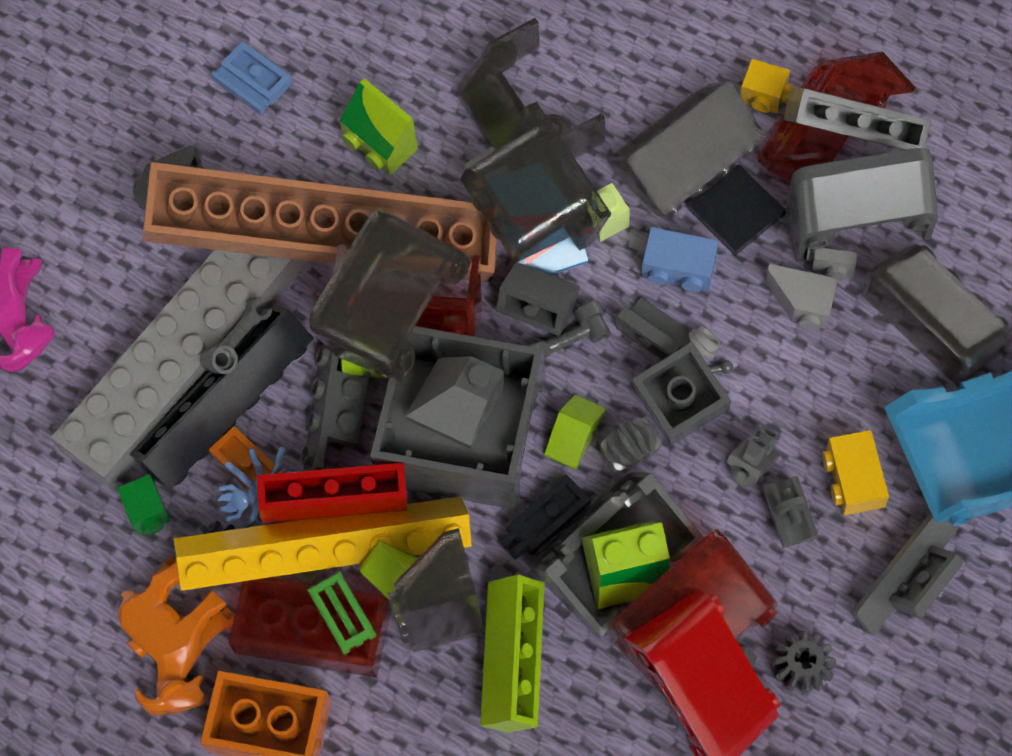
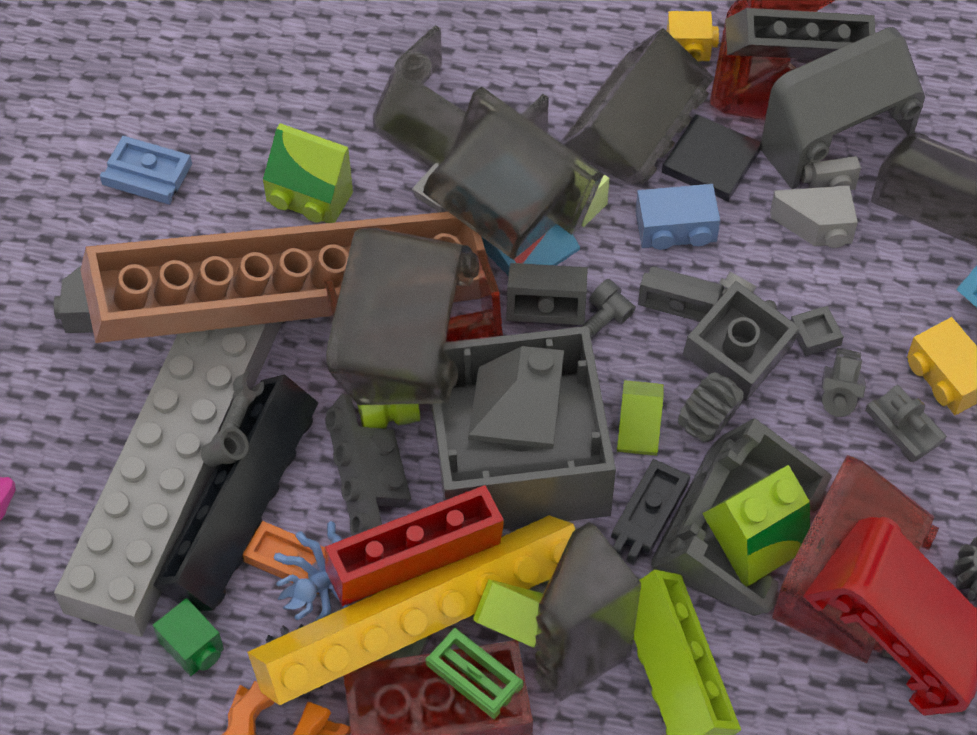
camera: 25 degrees left, 10 degrees down
(755, 403) = (817, 330): none -> dark grey plate

